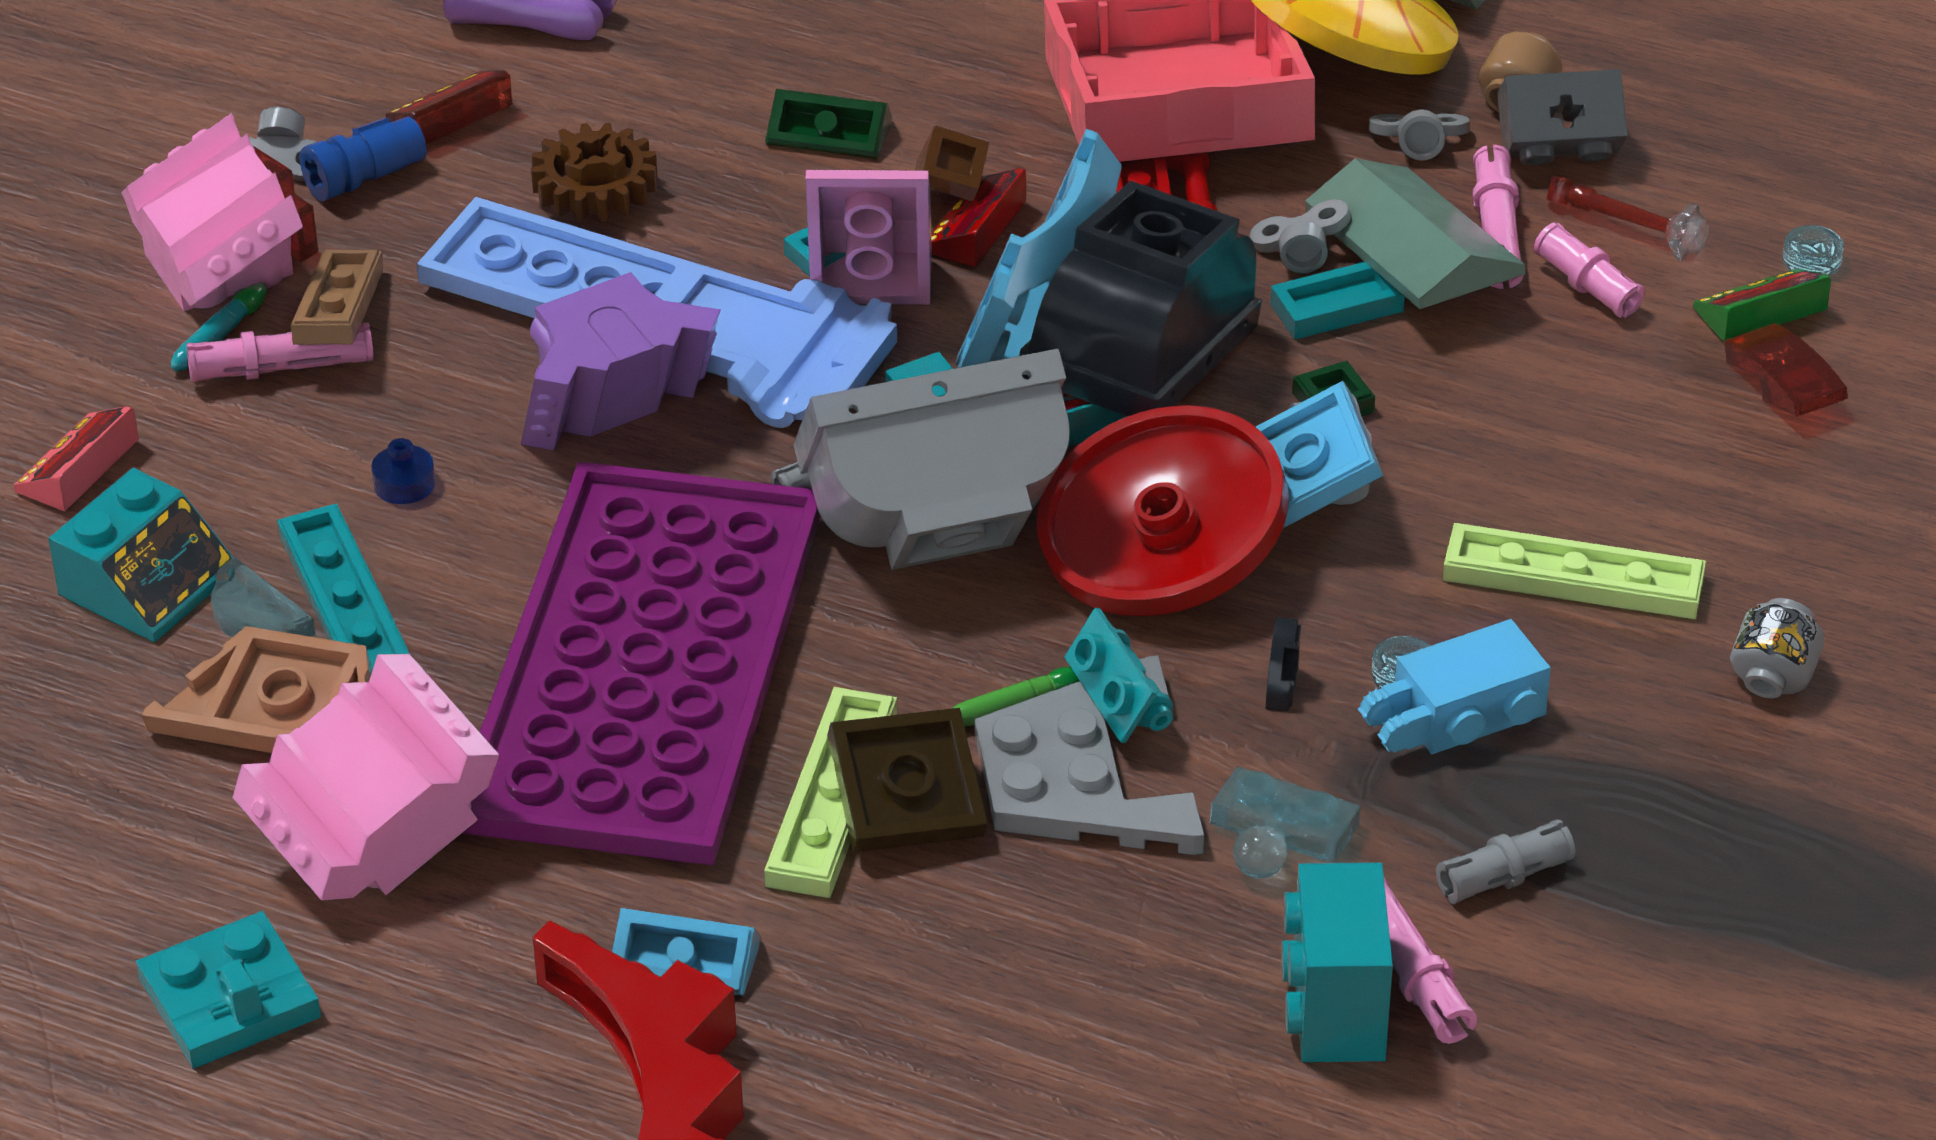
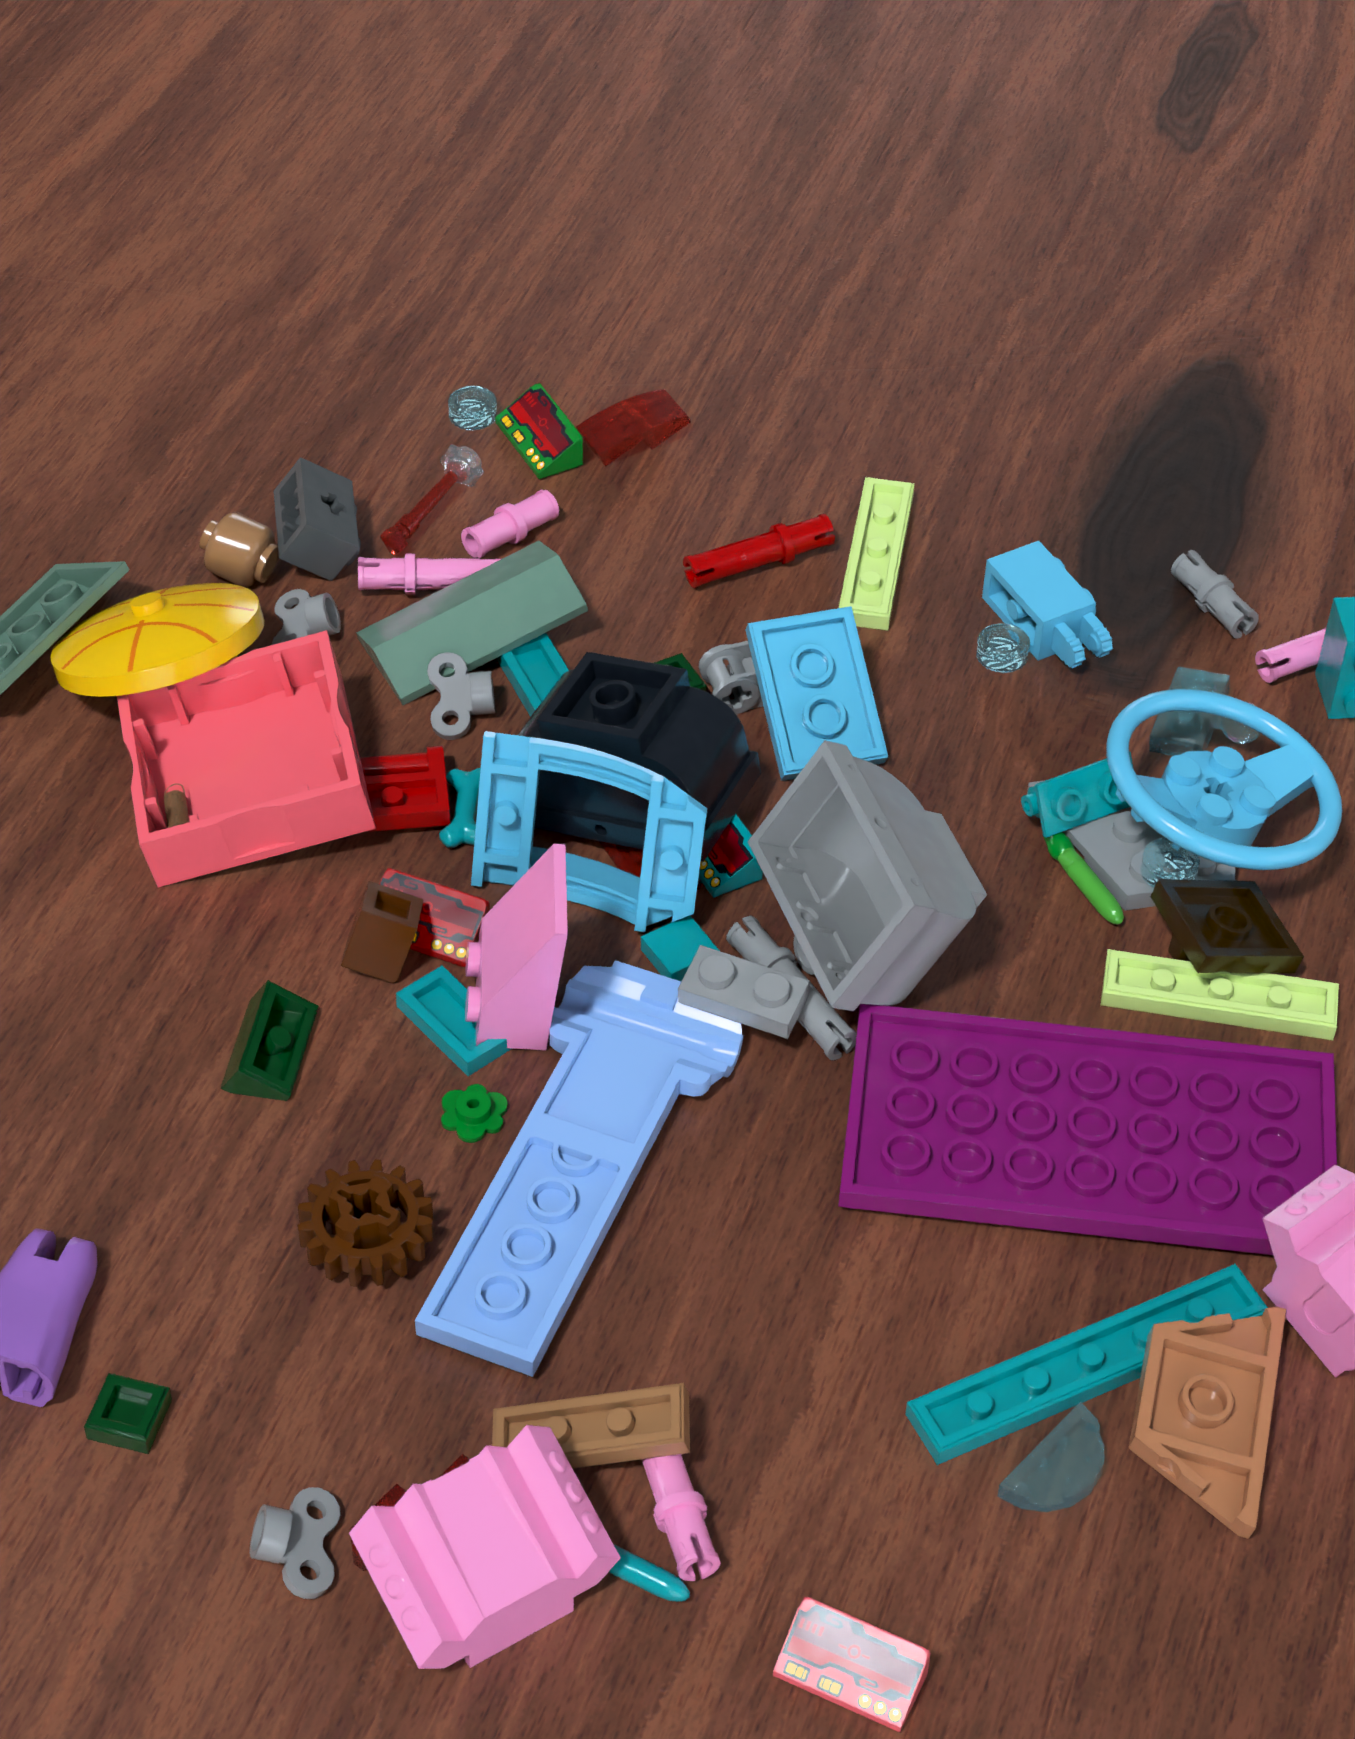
camera: 95 degrees left, 5 degrees up
(138, 555) = (1020, 1572): slope -> none
(368, 154) = (342, 1457): blue axle -> none
(403, 473) = (844, 1355): clear blue tile -> none
(427, 61) = (128, 1413): none -> dark green tile
(458, 104) = (218, 1377): clear red slope -> none
(612, 358) = (730, 1157): medium lavender slope -> none
(736, 254) = (473, 1112): none -> green plant
(836, 372) = (743, 991): none -> light grey plate
(999, 736) = (1168, 861): none -> clear light blue tile
(1071, 729) = (1217, 799): none -> medium azure piece
(1115, 48) = (176, 807): none -> medium nougat piece
(1163, 510) = (888, 722): red dish -> none
(1283, 664) = (1028, 709): black tile -> none
(1566, 477) = (778, 544): none -> red pin
(1778, 646) = (969, 440): head -> none

